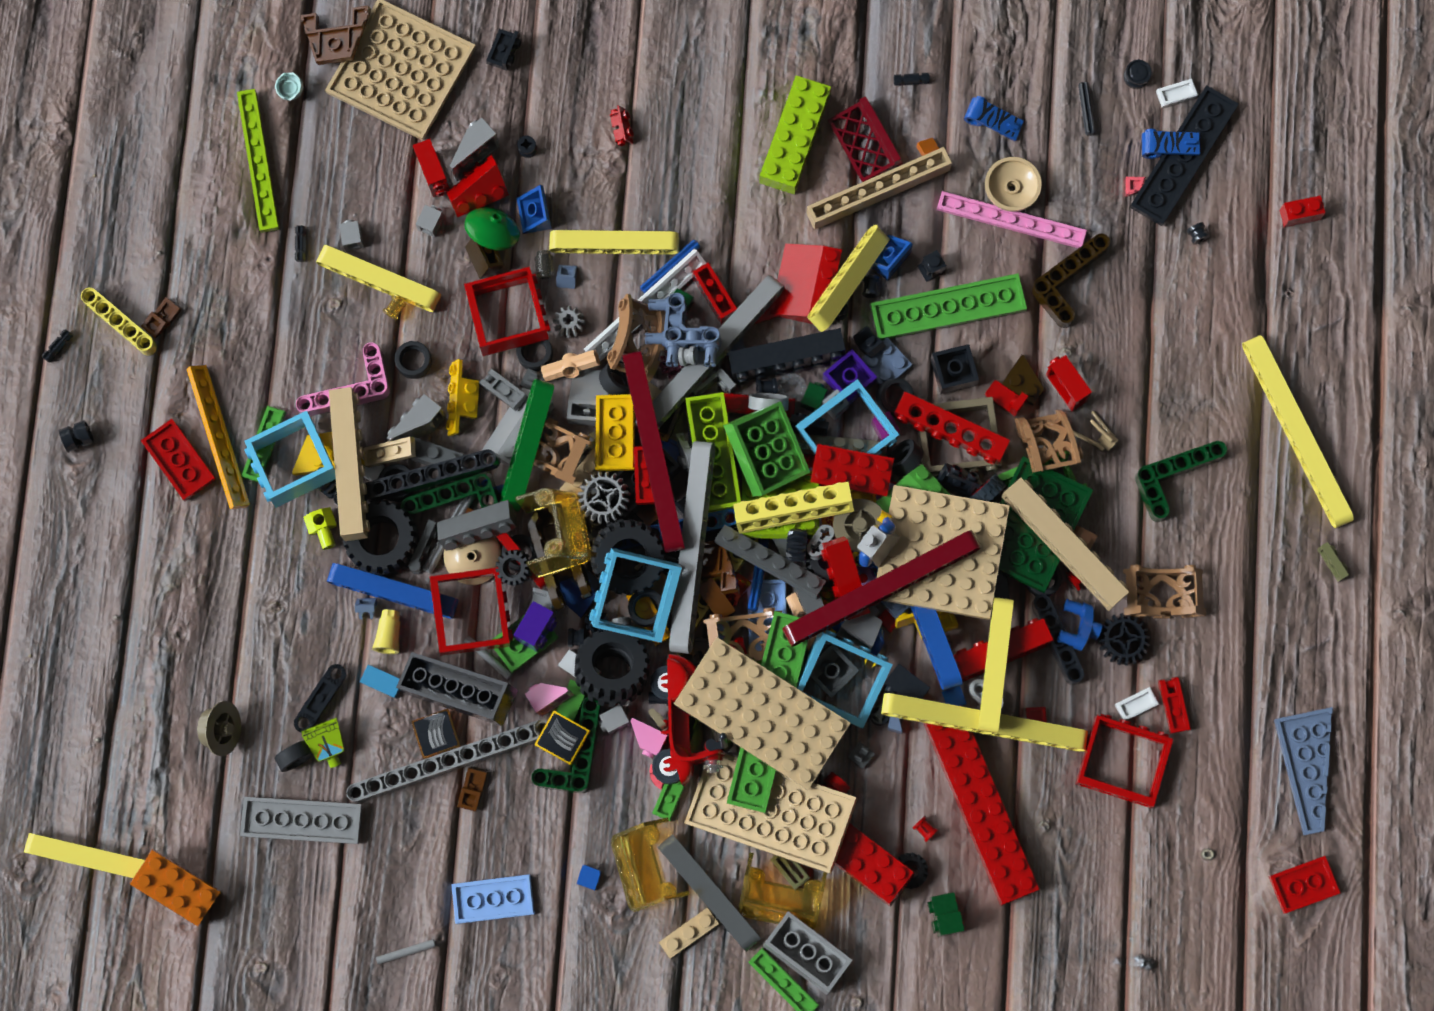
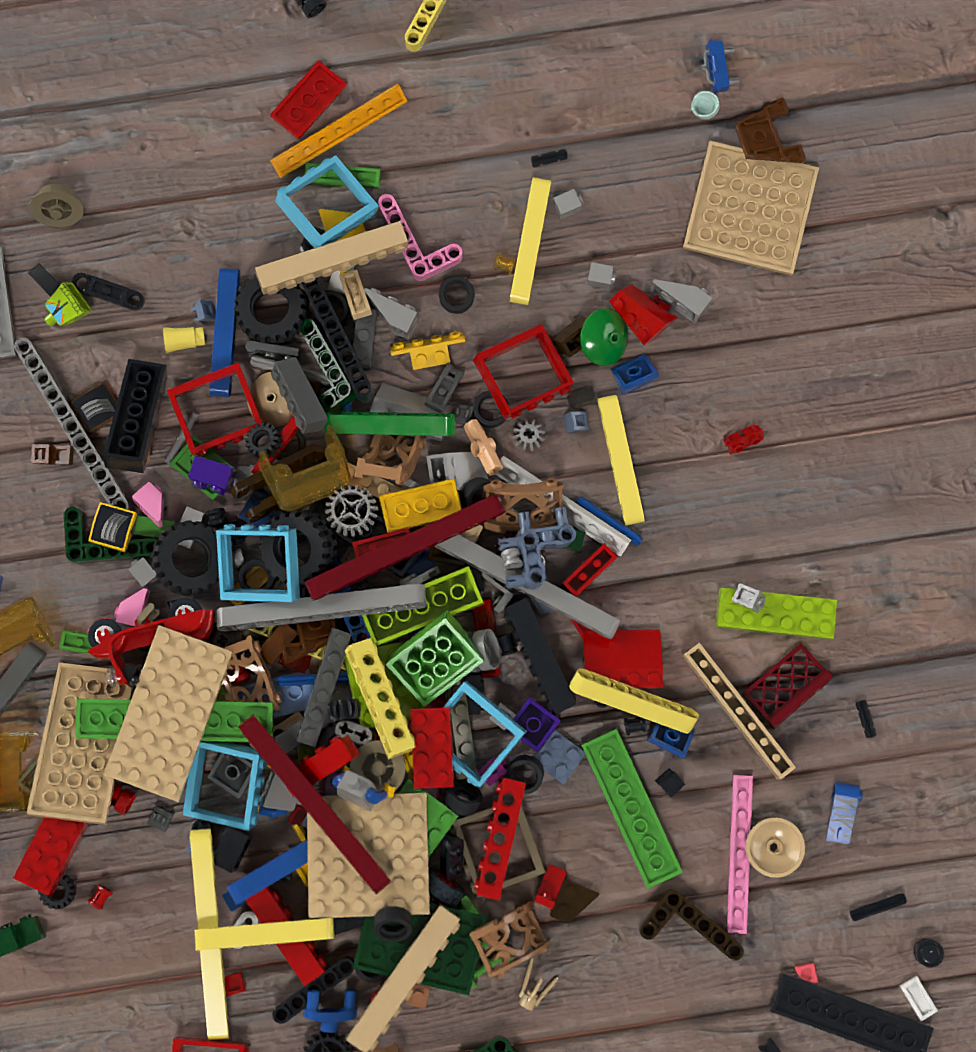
camera: 75 degrees right, 5 degrees up
(161, 318) = (445, 48): reddish brown slope -> none
(253, 67) = (717, 66): none -> blue piece
(258, 160) = (623, 95): lime plate -> none
(323, 530) = (269, 253): neon yellow piece -> none
(380, 681) = (137, 343): dark azure tile -> none
(431, 168) = (652, 263): red window -> none
(503, 49) = (795, 303): black bracket -> none
(529, 150) = (697, 353): black wheel -> none
(776, 150) = (749, 598): none -> light grey bracket
(813, 396) = (507, 693): dark green brick -> none
(868, 342) = (575, 736): black bracket -> none
(927, 146) = (795, 752): orange slope -> none
(954, 369) = (566, 828): black brick -> none
(983, 812) = (123, 953): red brick -> none
(1002, 540) = (393, 914): none -> black tyre
(1068, 382) = (577, 947): red window -> none
(1163, 142) = (860, 1005): blue door -> none

